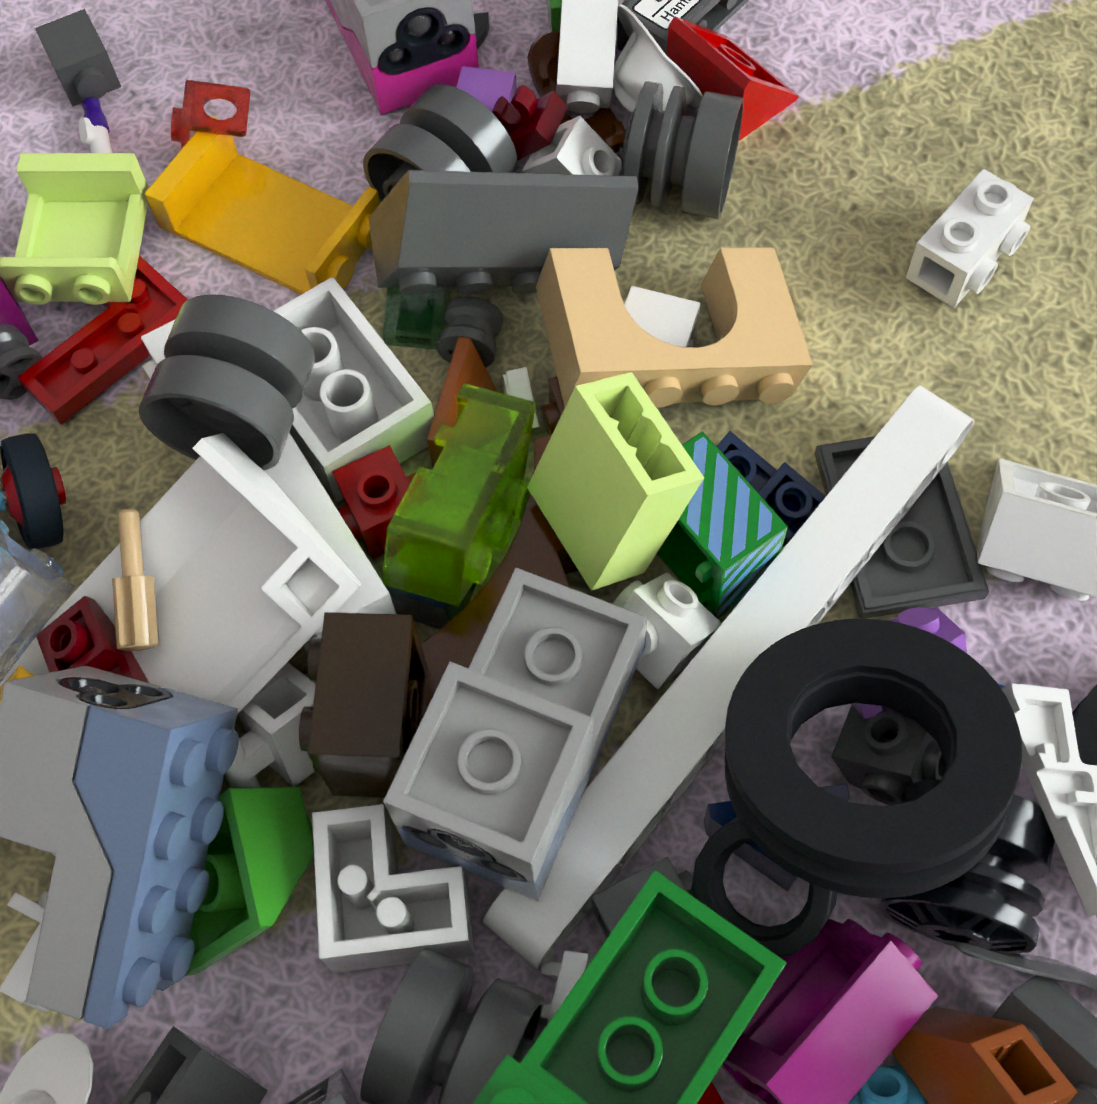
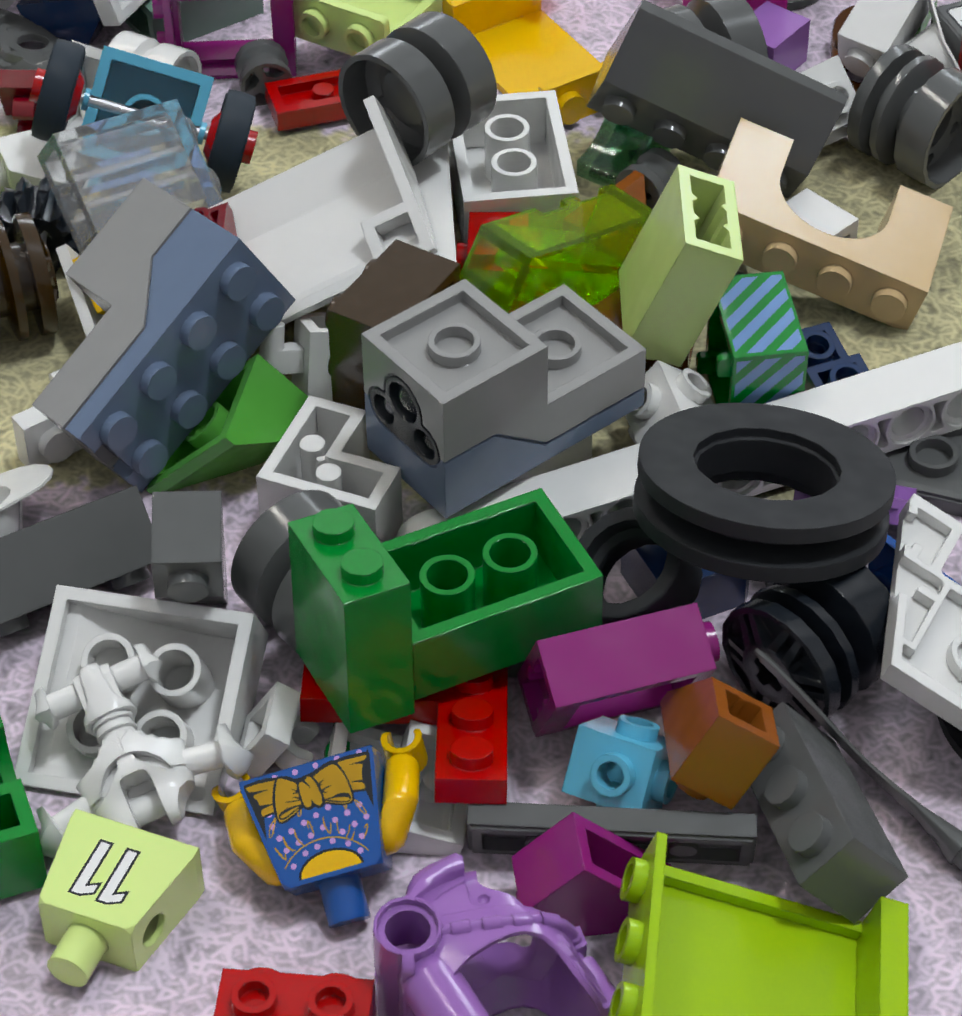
camera: 25 degrees right, 20 degrees down
(133, 592) = (265, 207): tan axle -> none
(531, 120) = (794, 48): dark red tile -> none

